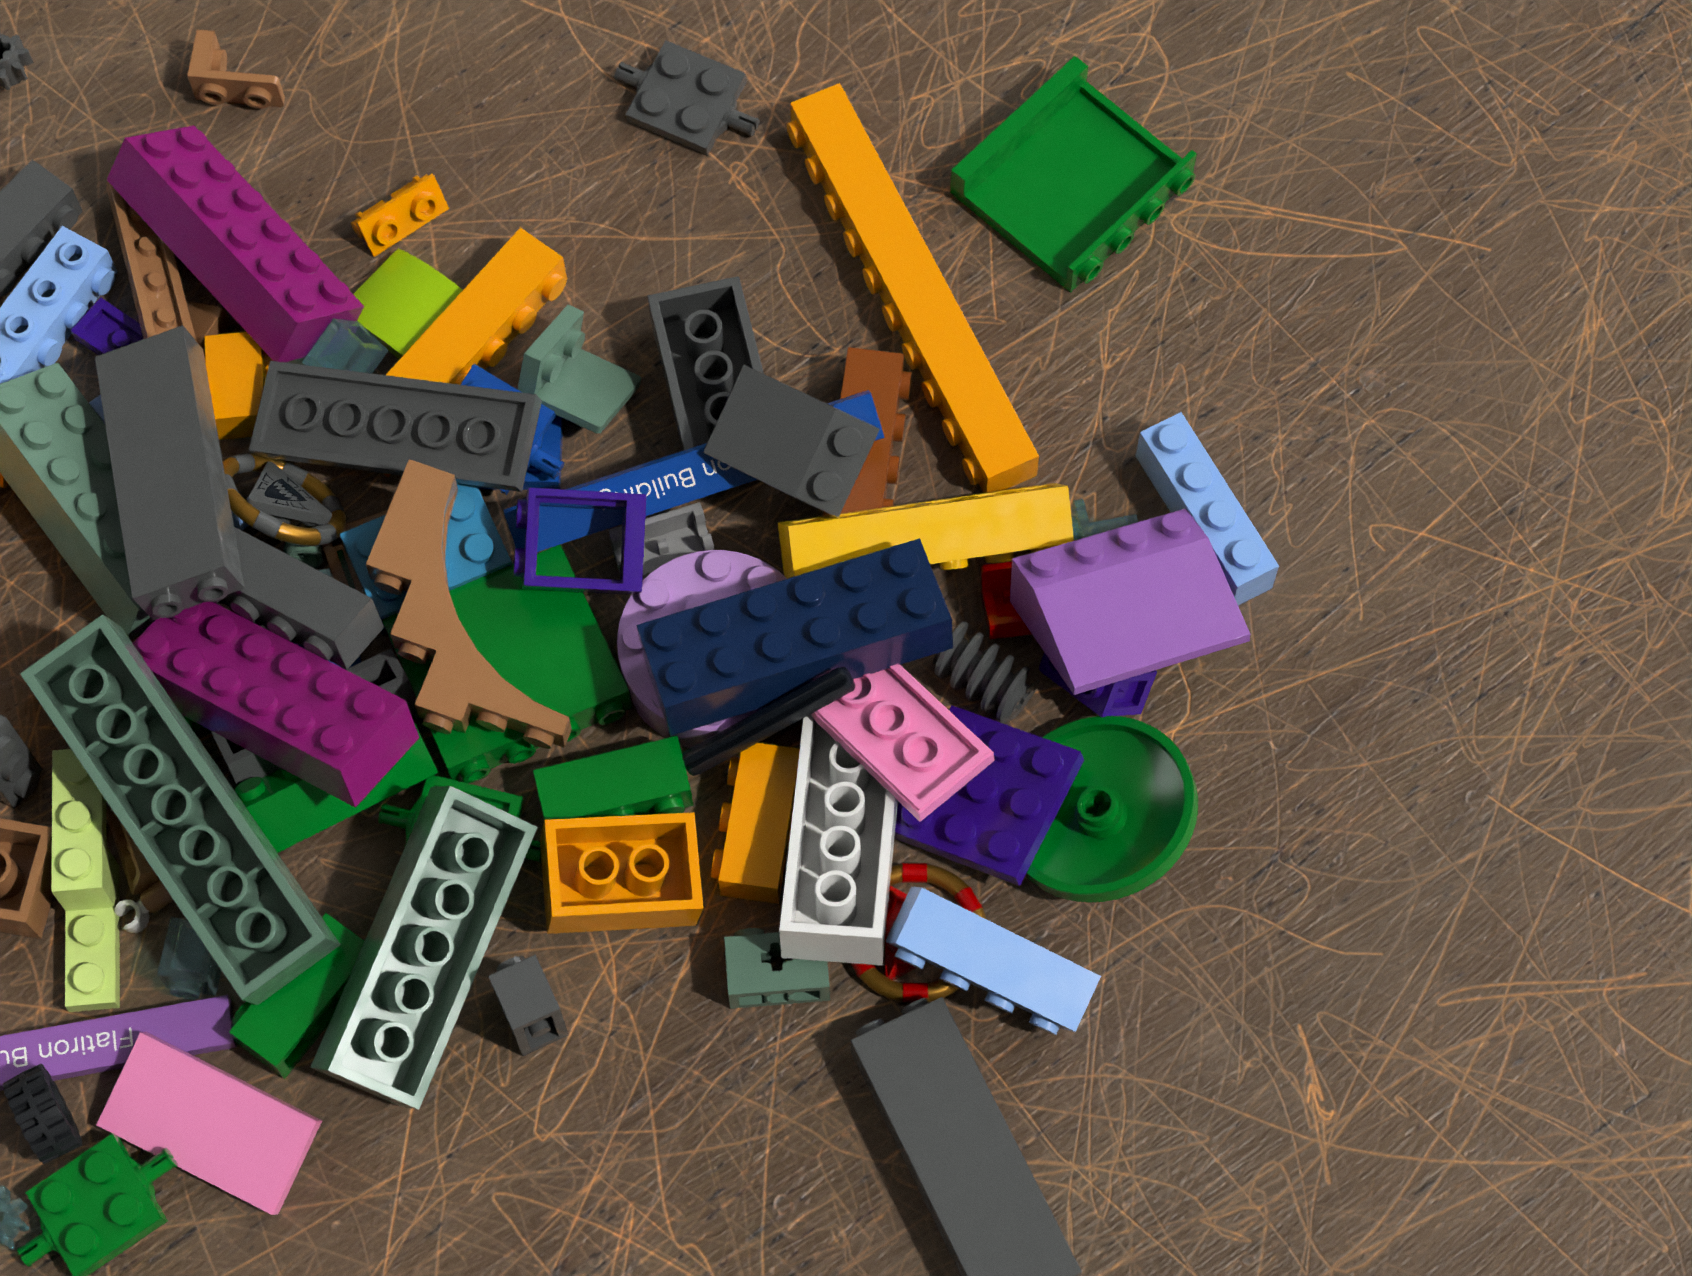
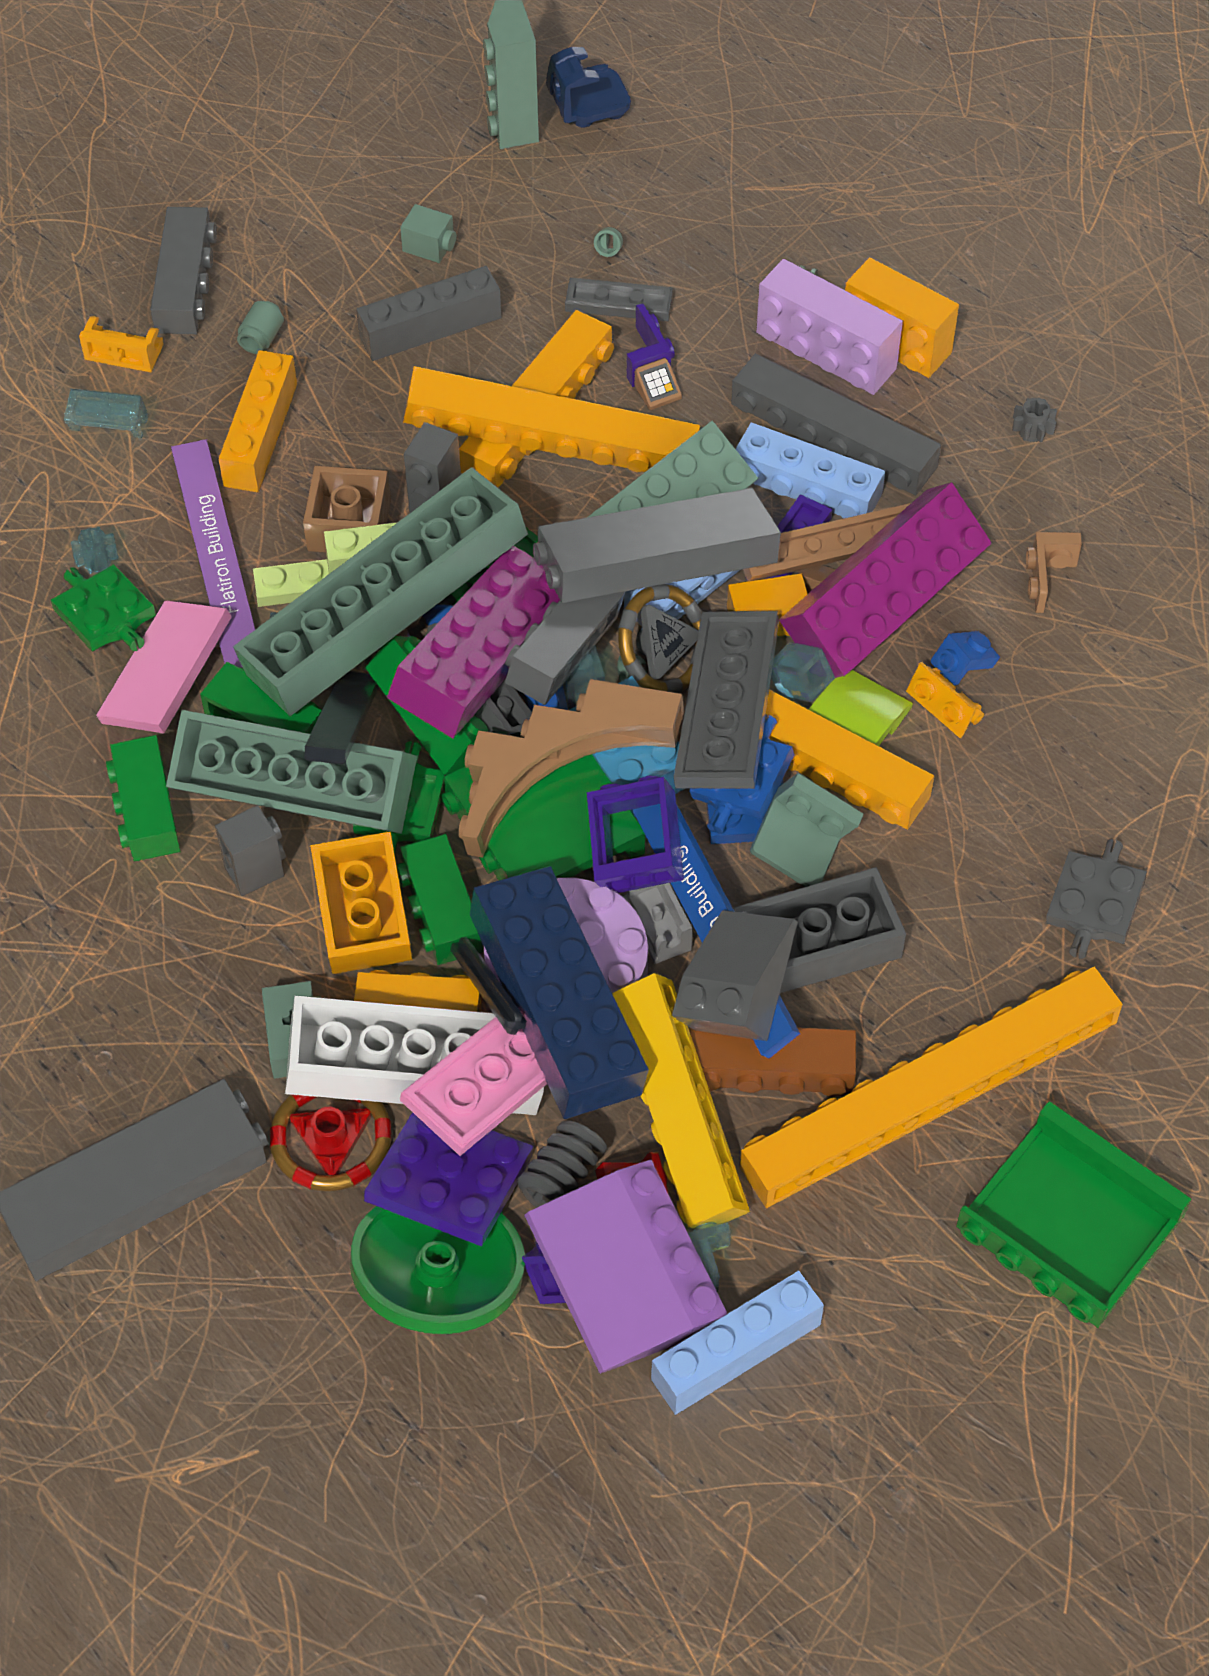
camera: 85 degrees right, 10 degrees down
(42, 1113) = (166, 560): black tyre -> none
(341, 184) = (964, 653): none -> blue bracket
(387, 865) = (341, 719): none -> black tile
(417, 1149) = (142, 798): none -> green brick
(991, 959) = (291, 1176): light blue brick -> none

